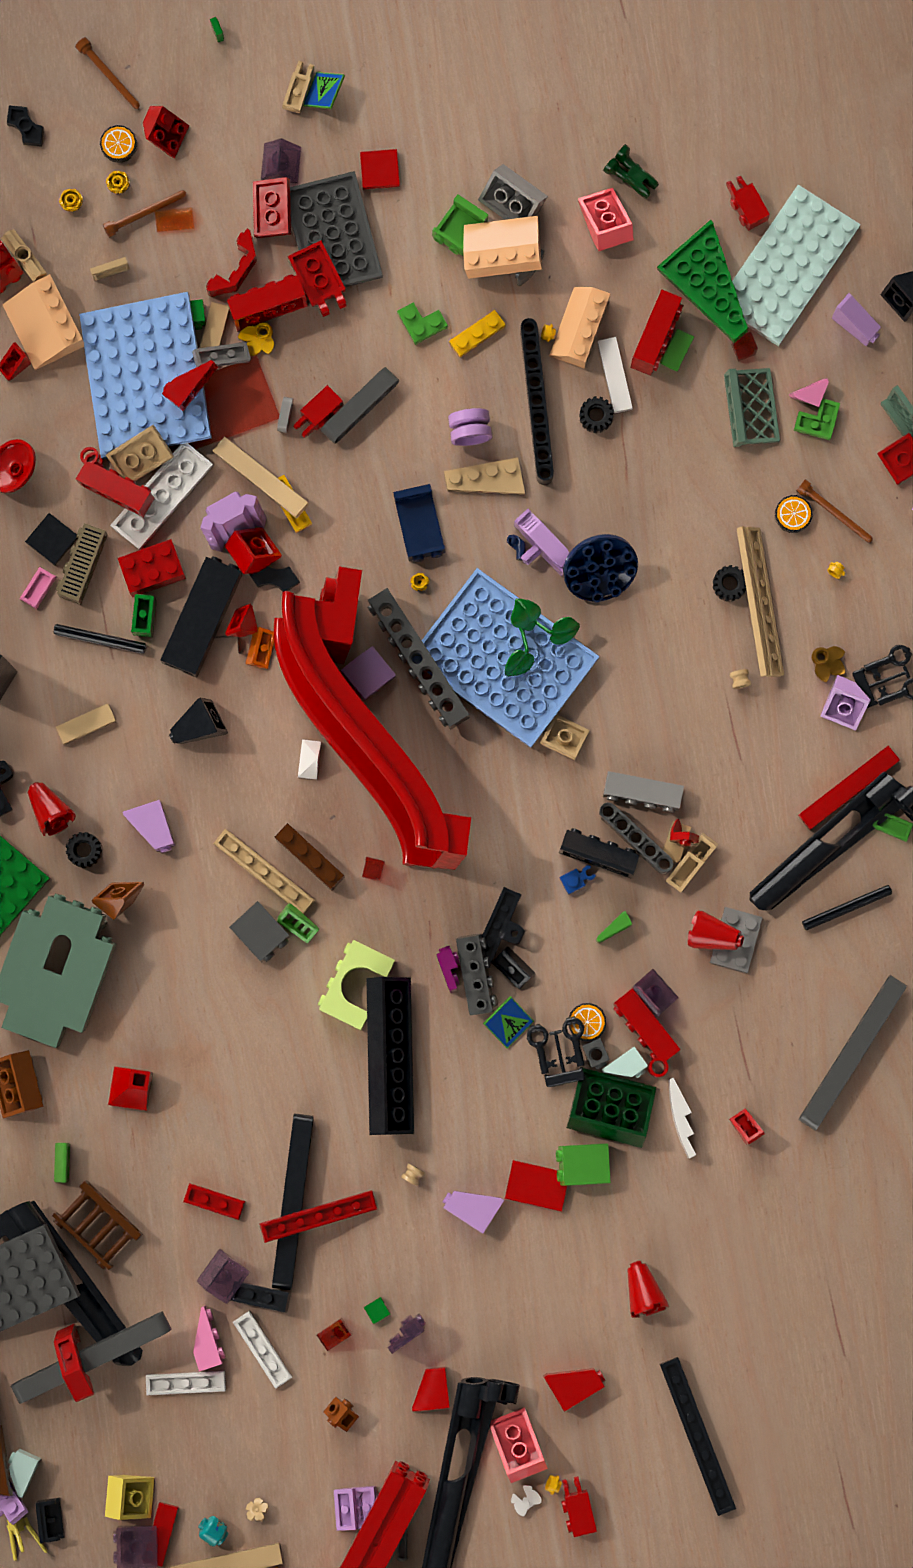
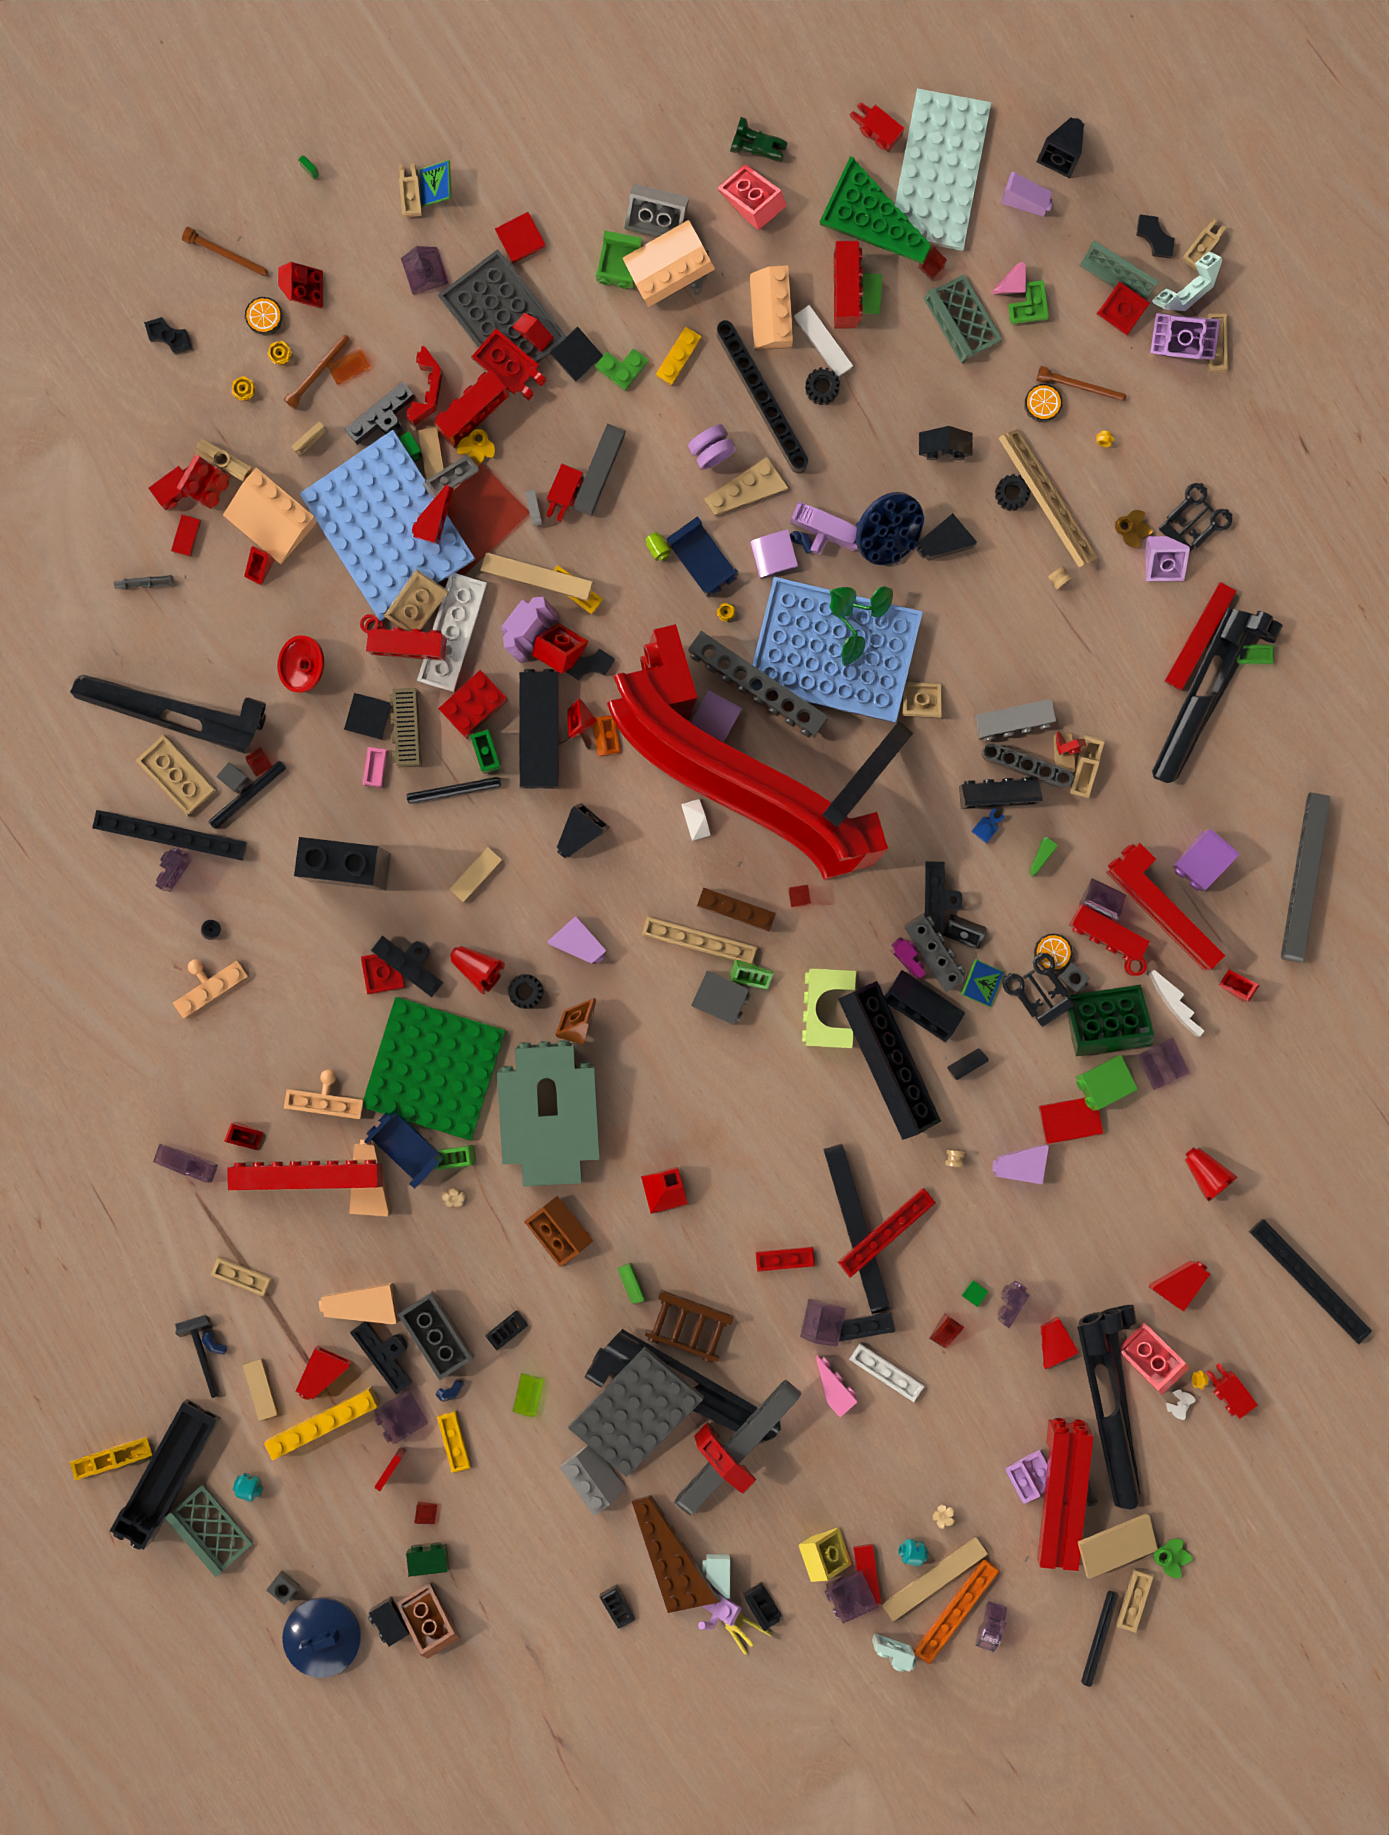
camera: 25 degrees left, 5 degrees up
(184, 274) = (381, 415): none -> plate
(185, 1383) = (830, 1431): white tile -> none
(271, 207) = (435, 316): plate -> none
(337, 1411) = (983, 1400): dark orange brick -> none
(353, 257) = (533, 331): none -> red slope
(383, 496) = (658, 546): none -> lime brick
(384, 293) = (576, 354): none -> black tile
(444, 1020) = (923, 1006): none -> black brick
(462, 1091) = (967, 1064): none -> black slope
(479, 781) = (867, 774): none -> black beam
(486, 547) = (773, 553): none -> lavender slope
(548, 332) = (744, 327): yellow plate -> none
(627, 1065) = (1106, 975): light aqua slope -> none
(646, 1170) = (1163, 1063): none -> slope
(649, 600) = (945, 540): none -> black slope
(686, 512) = (946, 443): none -> black brick
(686, 979) = (1130, 877): none -> red brick
(713, 933) = (1136, 823): red cone -> none
(740, 958) = (1156, 819): light grey plate -> none
(764, 996) = (1205, 860): none -> medium lavender slope
(847, 907) = (1244, 747): black axle -> none

